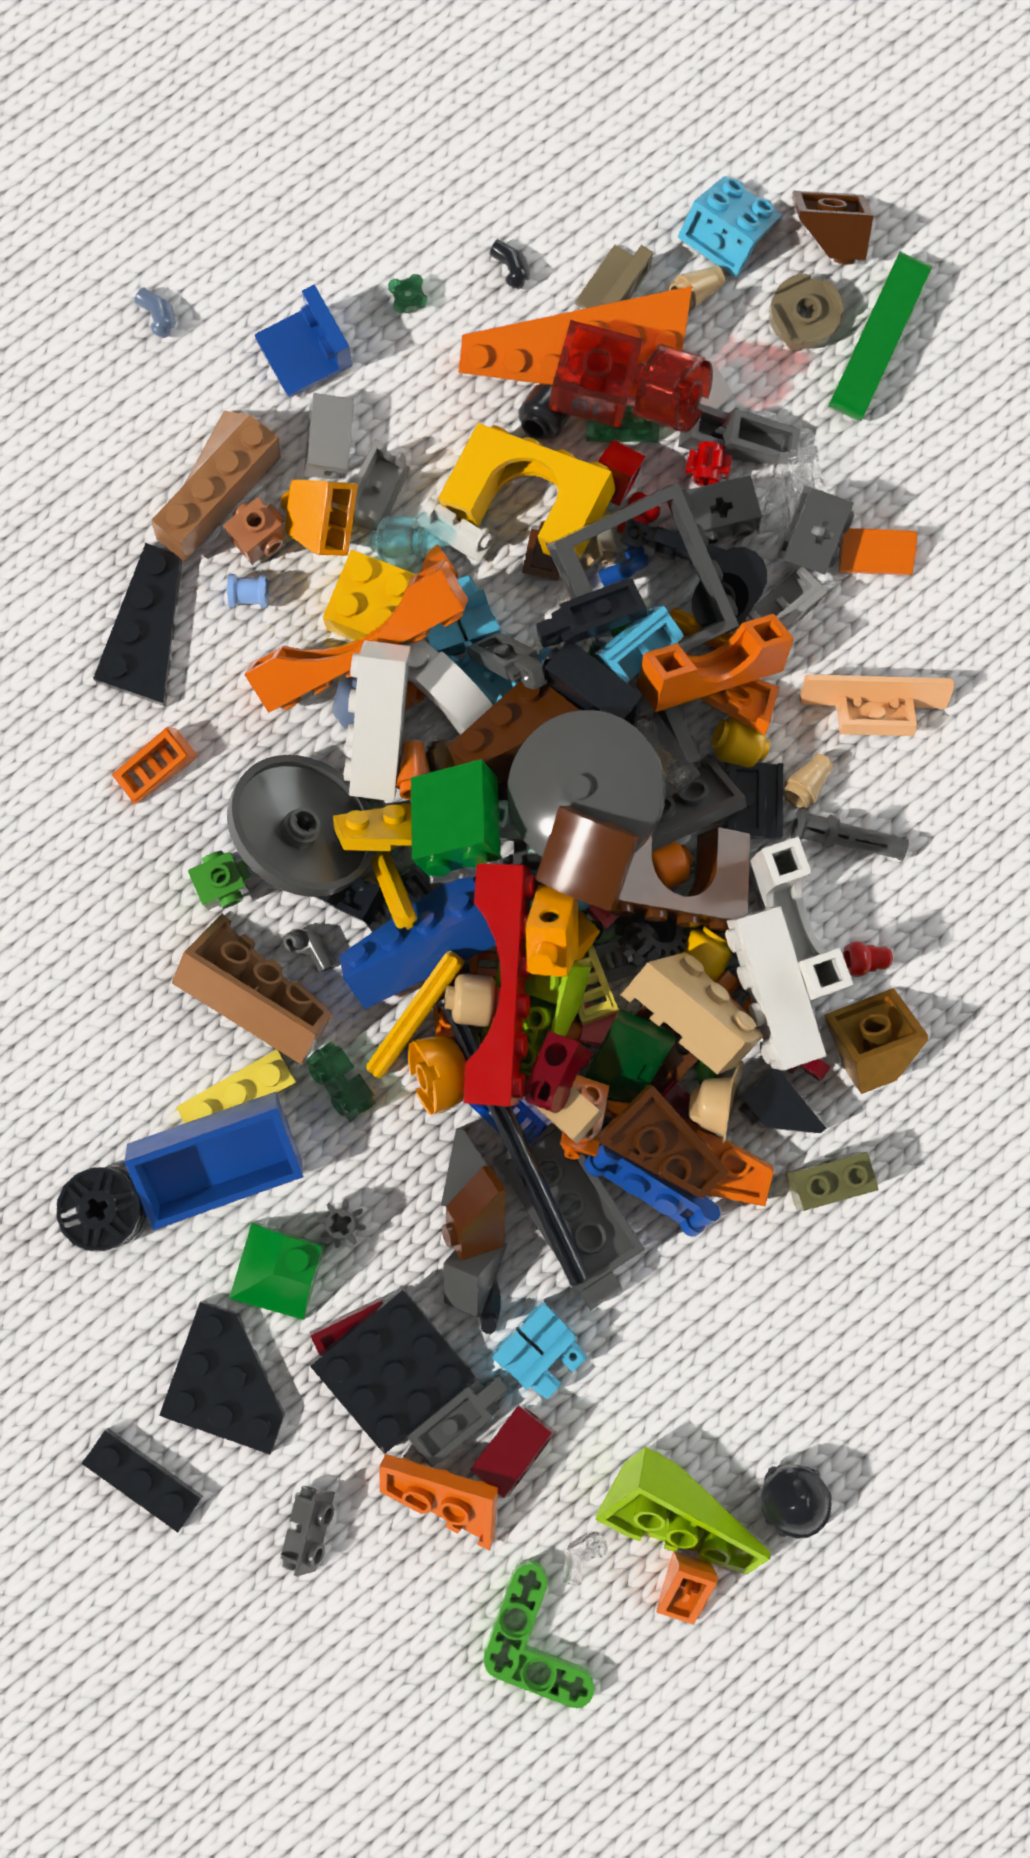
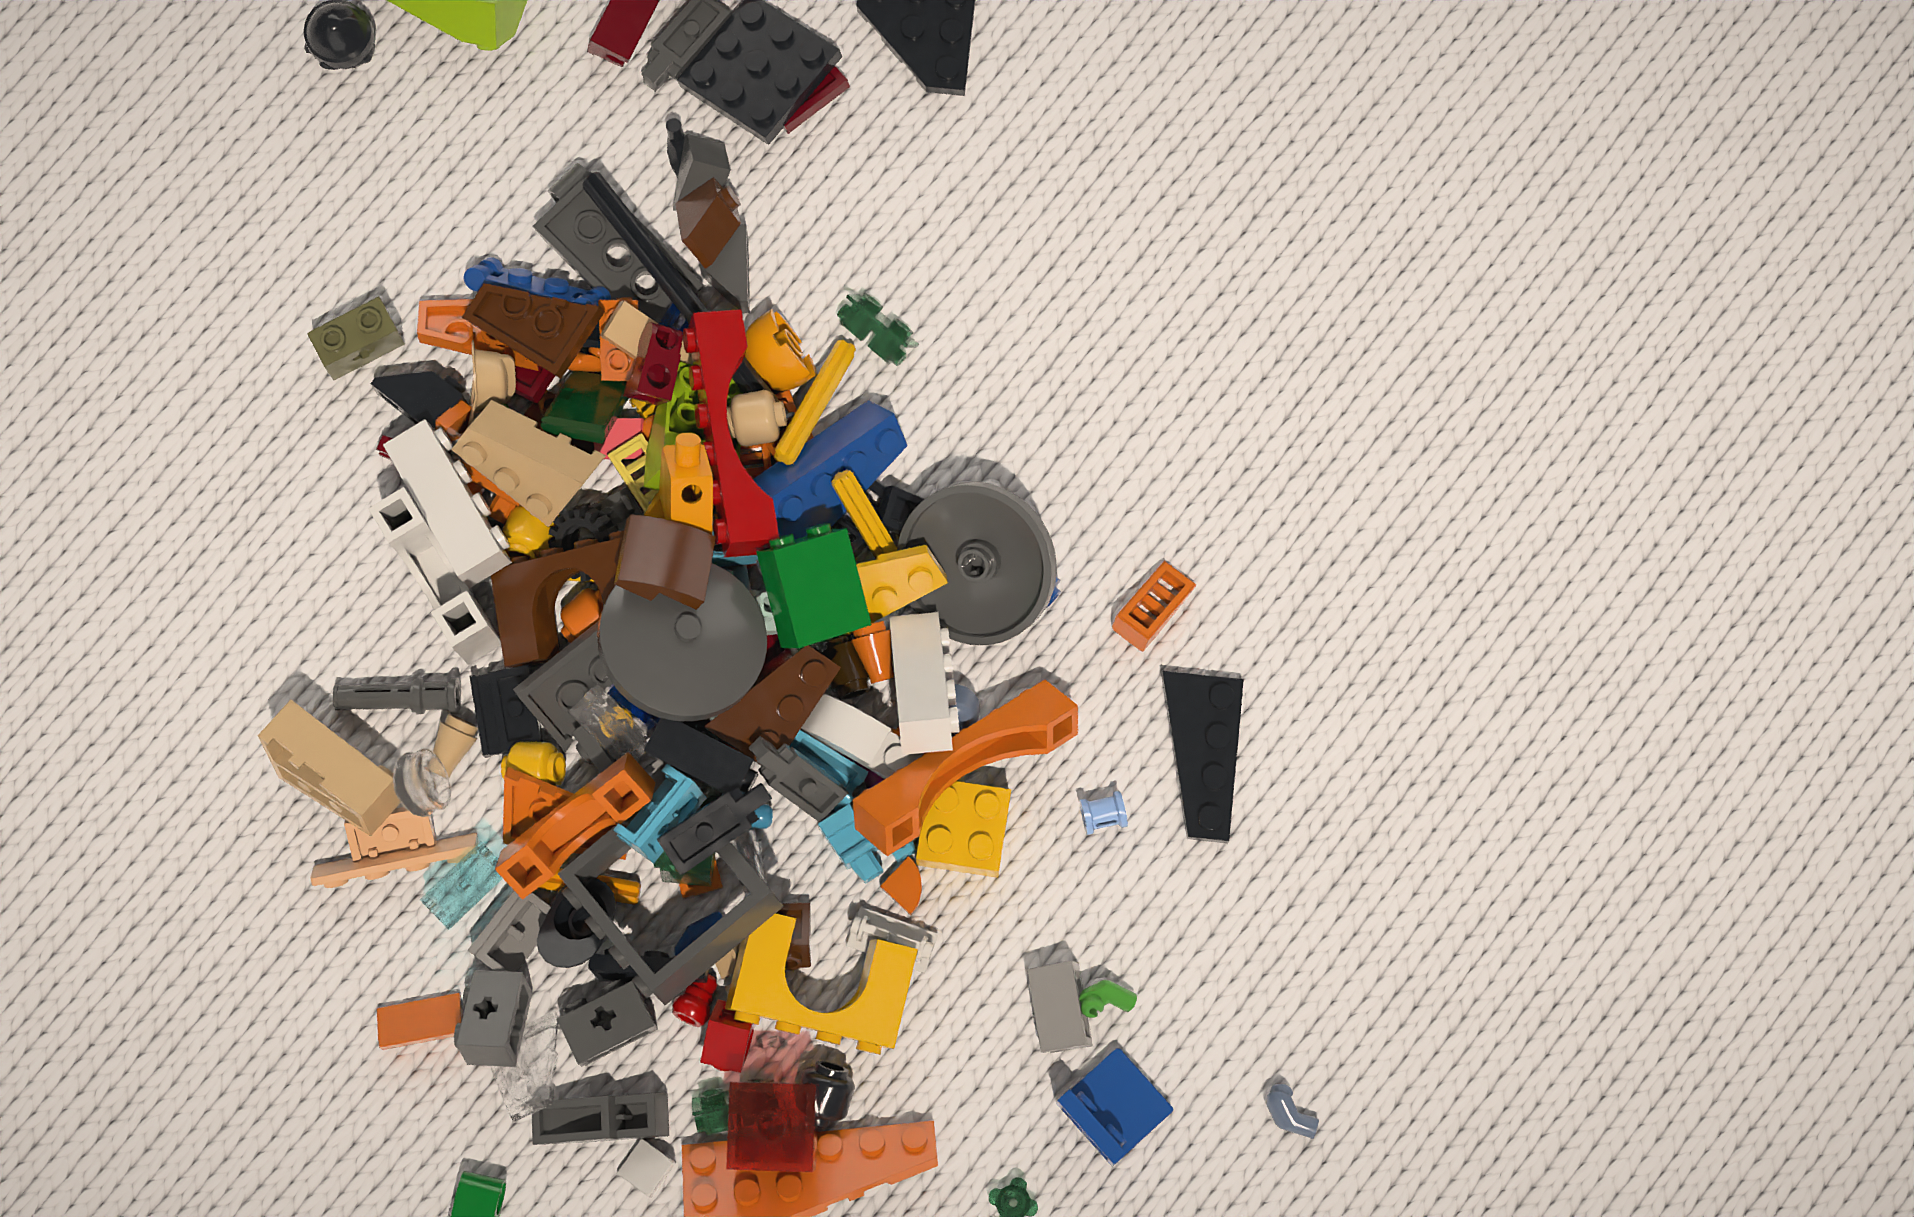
camera: 175 degrees right, 5 degrees down
(124, 1214) = (1078, 171): black wheel -> none
(207, 878) = (1059, 485): bright green brick -> none
(213, 1161) = (981, 216): blue piece -> none
(224, 473) = (1168, 934): medium nougat wedge -> none
(251, 991) = (989, 393): medium nougat wedge -> none
(254, 1081) = (980, 294): light yellow plate -> none
(255, 529) = (1114, 863): nougat brick -> none
(277, 1271) = (896, 138): green slope -> none
(295, 435) = (1103, 993): none -> bright green arm
(310, 944) = (942, 458): dark grey arm -> none
(320, 515) = (1043, 905): light orange torso -> none
(331, 1220) = (842, 202): dark grey gear -> none
(379, 485) = (991, 962): light grey hinge -> none
(399, 540) = (952, 905): clear light blue head -> none
(531, 1365) = (621, 120): medium azure hips -> none
(672, 387) = (683, 1128): clear red brick -> none
(708, 463) = (628, 1073): red gear -> none
(754, 1076) = (454, 420): none -> orange tile
(820, 647) = (463, 886): none -> clear light blue hinge
(843, 740) = (421, 782): none -> clear piece
(866, 958) = (357, 572): red piece -> none
(876, 1039) = (331, 490): pearl gold slope -> none
(921, 771) = (328, 769): none -> tan wedge

